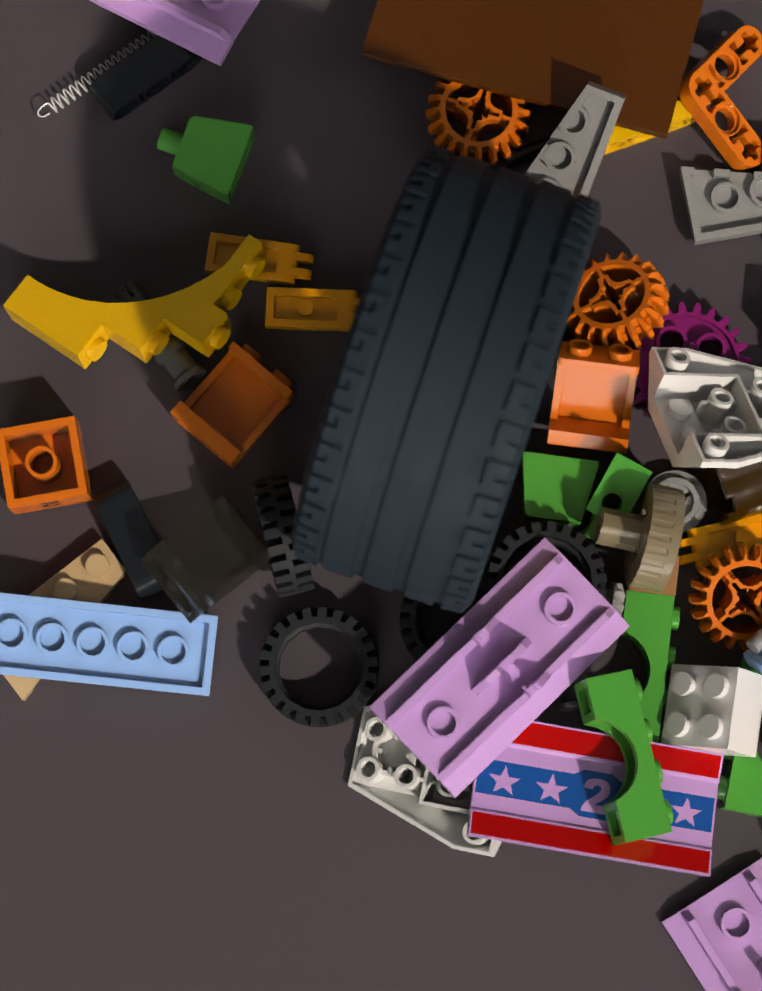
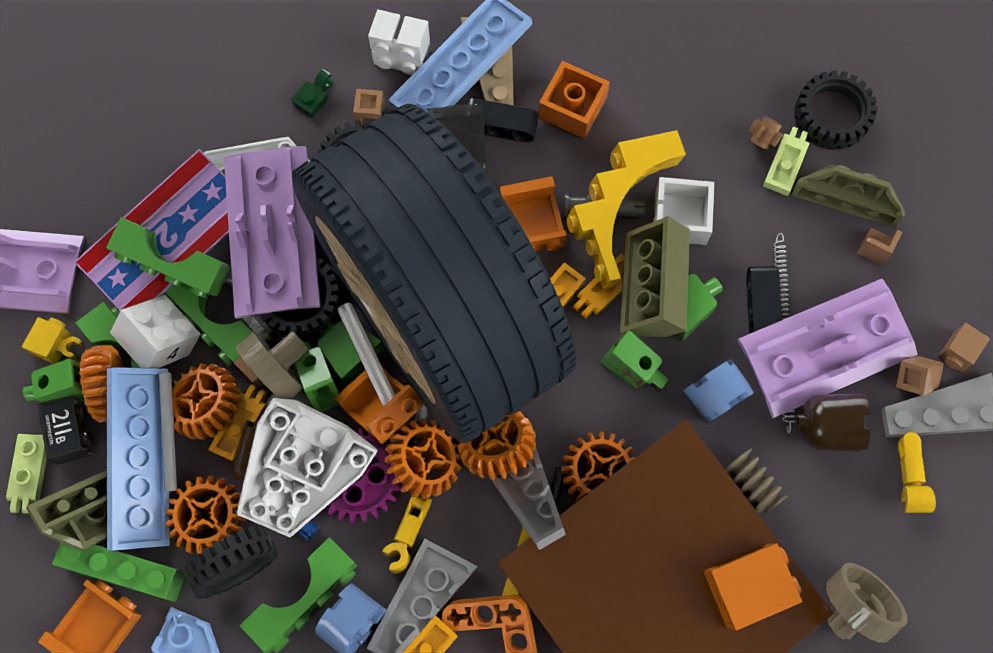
camera: 125 degrees right, 10 degrees down
(97, 232) = (687, 203): none -> white piece
(130, 741) = (407, 51): none -> white piece
(219, 197) = (656, 279): none -> olive slope
(240, 707) = (368, 104): none -> medium nougat panel
(274, 801) = (313, 96): none -> dark green plate
(295, 47) = (718, 391): none -> medium blue brick
(330, 162) = (634, 362): none -> bright green torso
(552, 451) = (366, 353): none -> white axle
(708, 265) = (406, 535): none -> yellow piece

